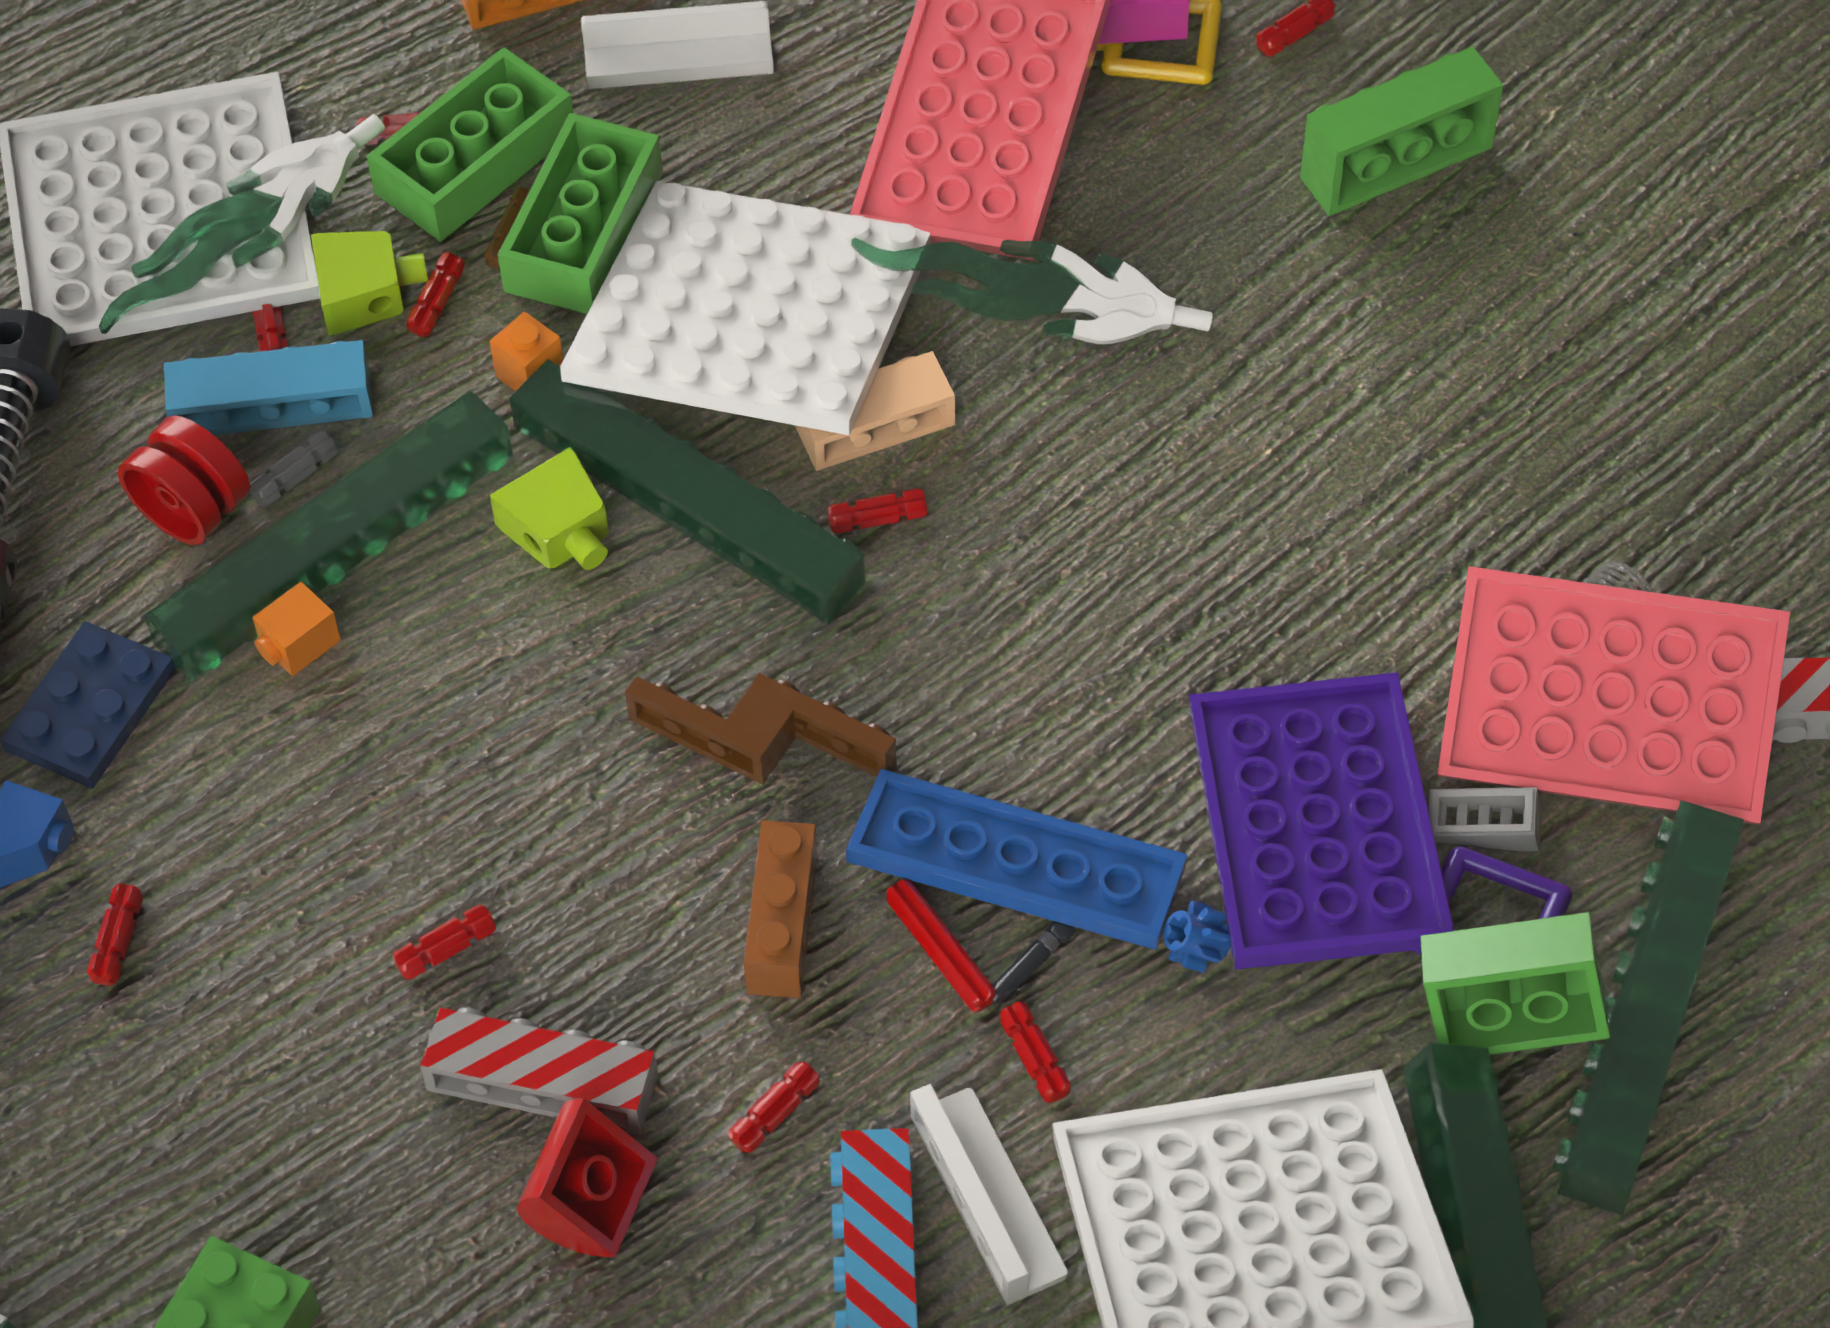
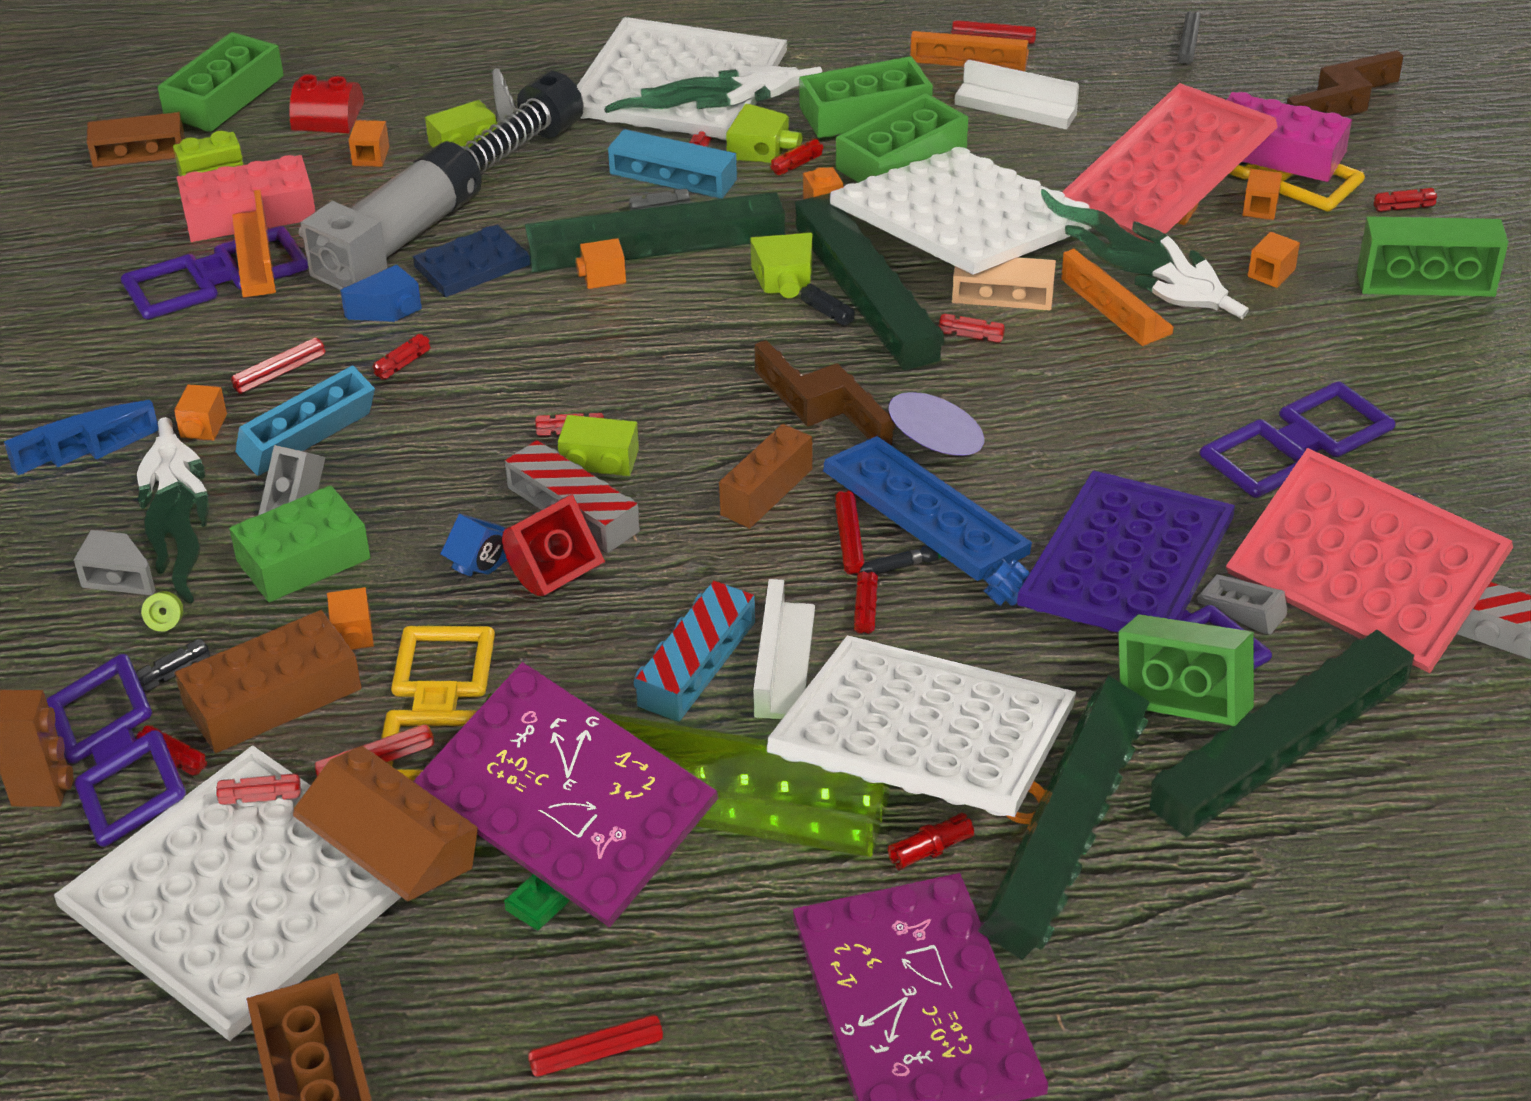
camera: 30 degrees right, 15 degrees down
(74, 1131) = (305, 418): none -> dark azure brick
(128, 1249) = (290, 477): none -> light grey slope
(184, 480) = (592, 177): red wheel -> none
(476, 1219) = (475, 546): none -> blue slope
(518, 965) = (600, 444): none -> lime brick
(657, 557) = (827, 304): none -> black axle
(774, 1107) = (690, 566): red axle -> none
(943, 709) = (936, 423): none -> sticker
(1032, 373) = (1113, 299): none -> orange panel
(1116, 98) = (1262, 194): none -> orange brick
(1198, 213) = (1273, 259): none -> orange brick
(1397, 515) = (1296, 437): none -> dark purple bar

